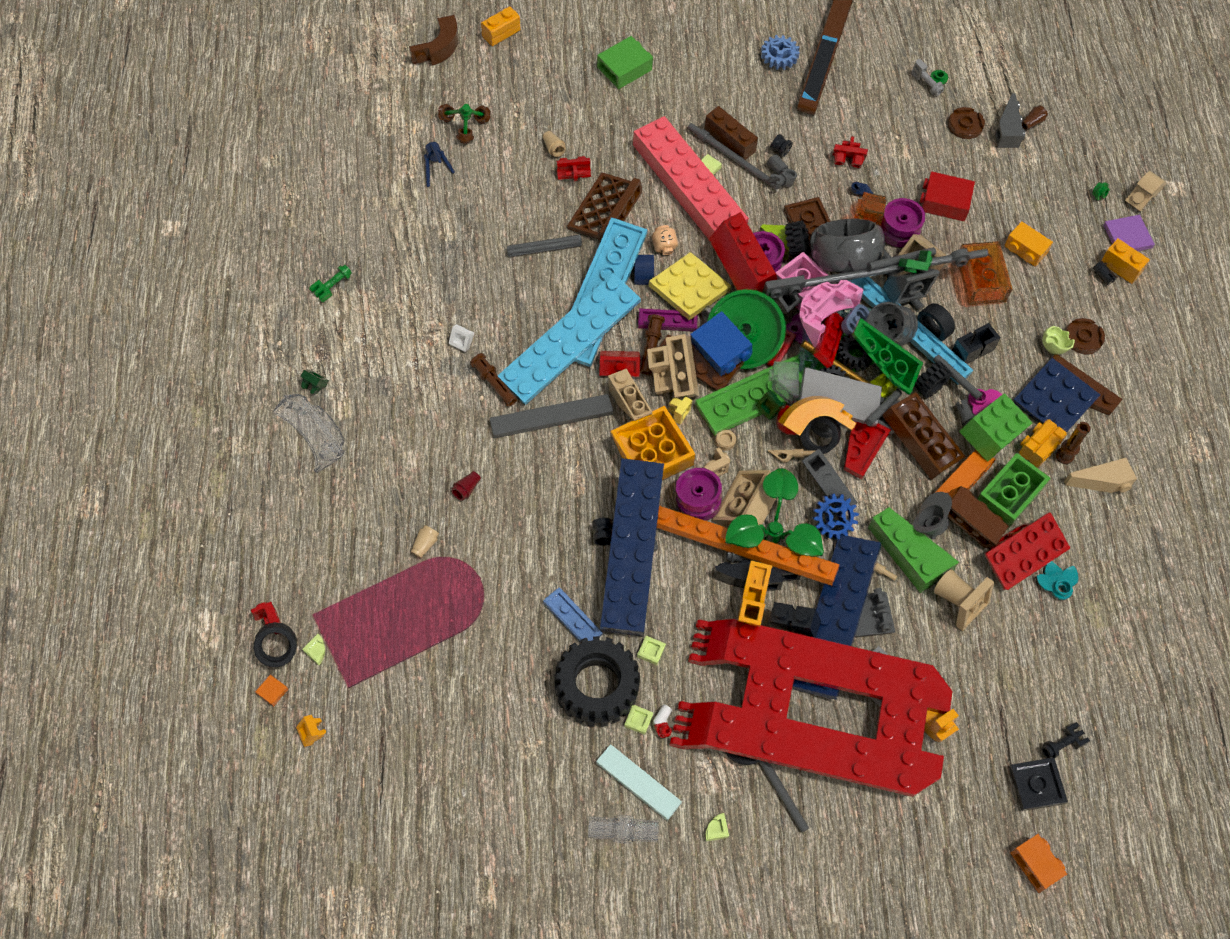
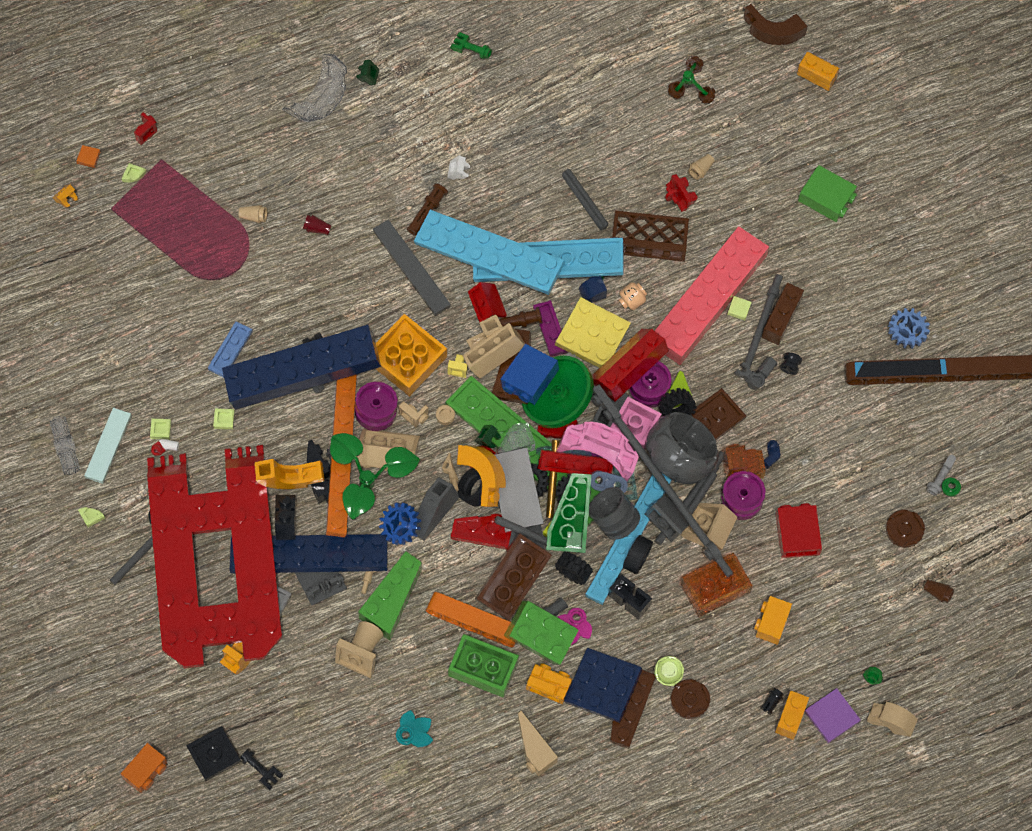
camera: 70 degrees right, 5 degrees up
(275, 661) = (133, 141): black tyre -> none
(434, 154) = (643, 72): dark blue plant -> none
(602, 654) = (176, 360): black tyre -> none
(628, 395) = (449, 318): tan slope -> none
(849, 149) = (811, 435): red hips -> none
(895, 260) = (684, 498): dark grey bar -> none
(923, 263) = (677, 509): green bracket -> none
(933, 515) = (423, 601): dark grey piece -> none
(960, 379) = (586, 590): dark grey bar -> none
(976, 518) = (441, 637): reddish brown brick -> none
(1009, 130) = (917, 567): dark grey slope -> none
(1026, 550) = (428, 692): red bracket -> none
(1072, 445) = (549, 705): reddish brown pin -> none

